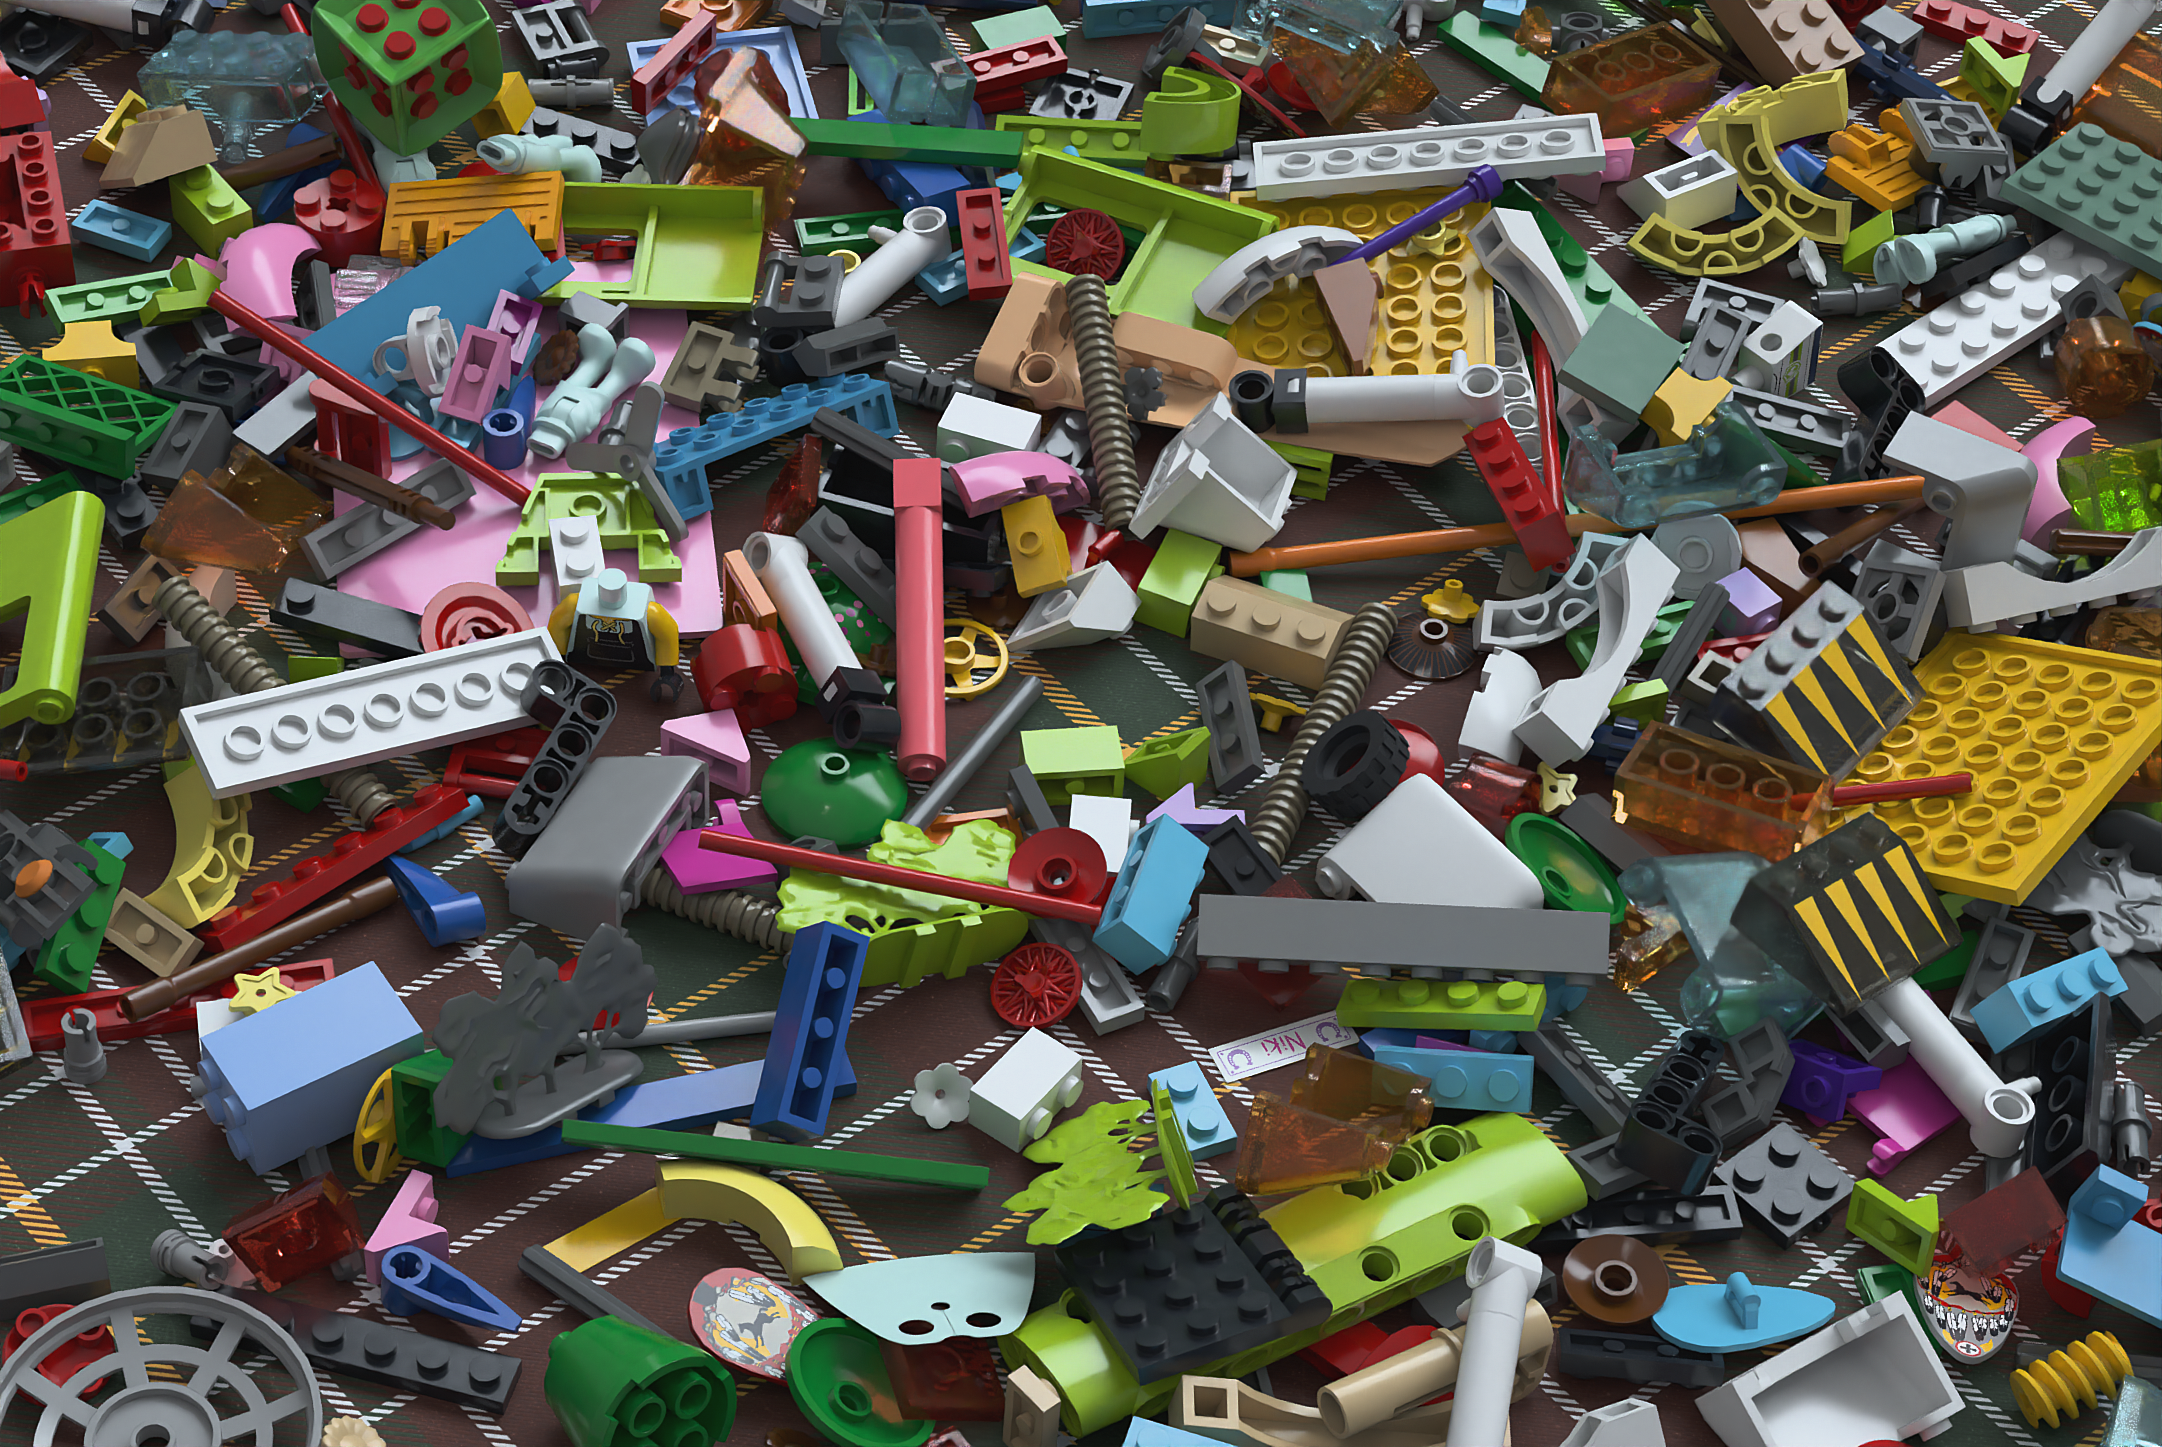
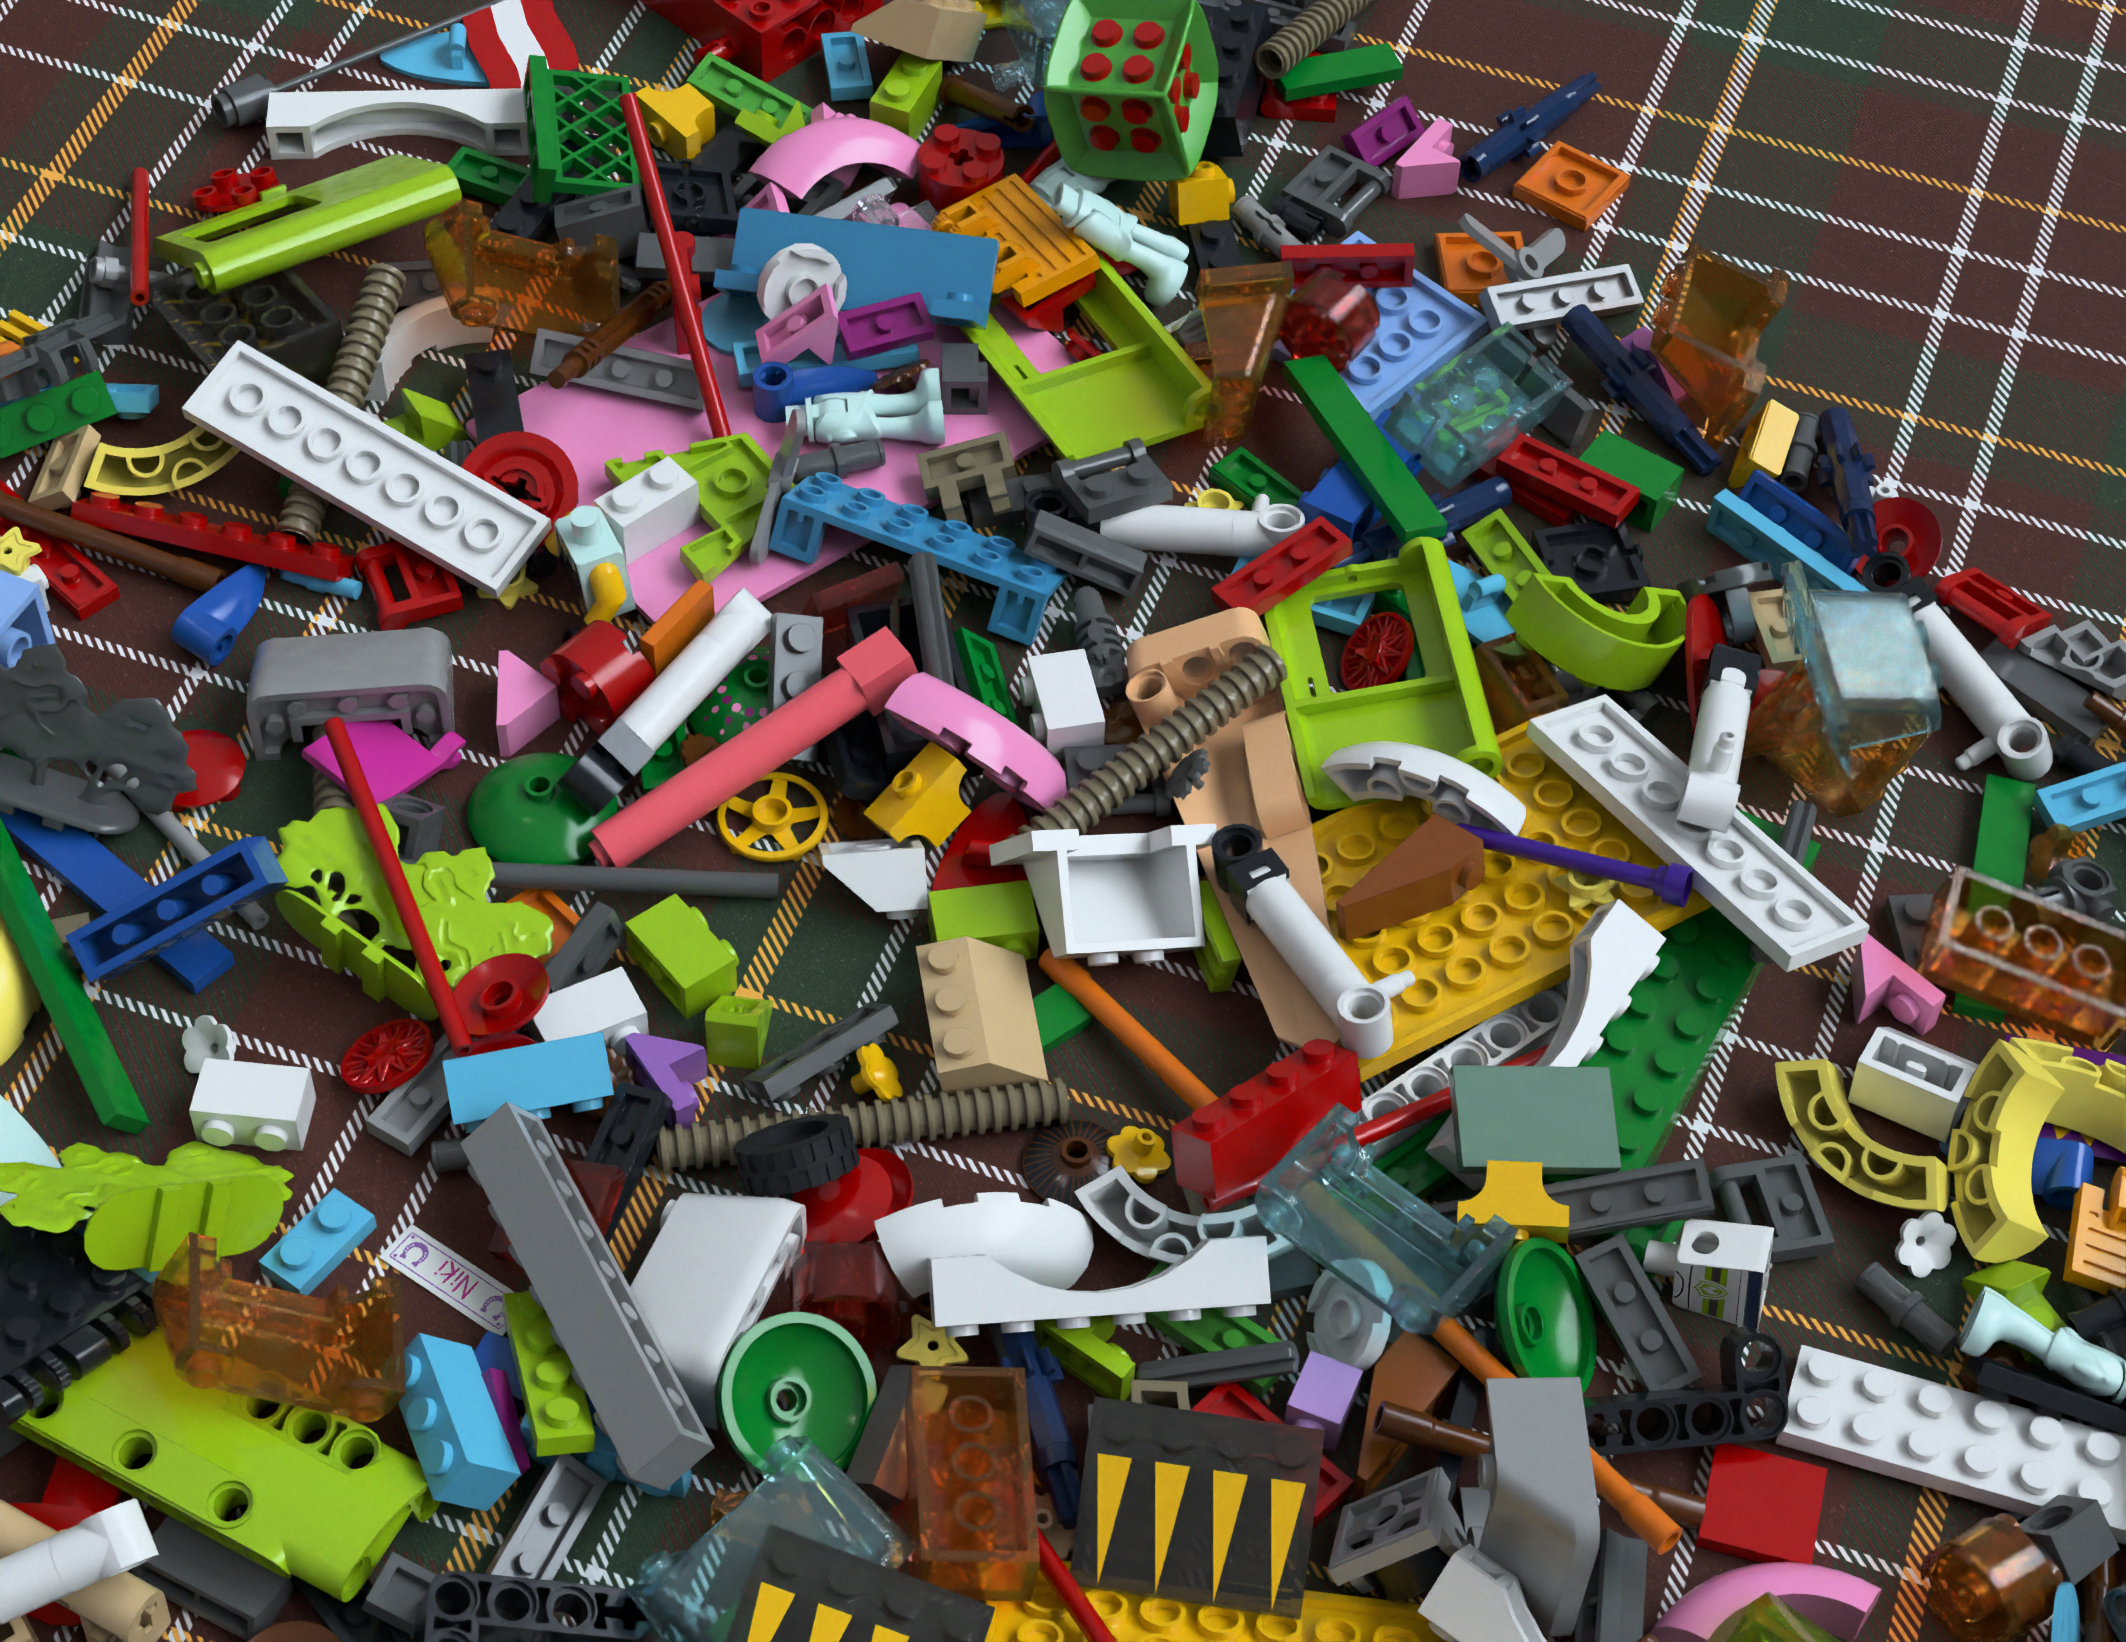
camera: 60 degrees right, 5 degrees up
(552, 767) = (398, 595): black beam -> none
(1311, 84) = (1719, 738): none -> white piece

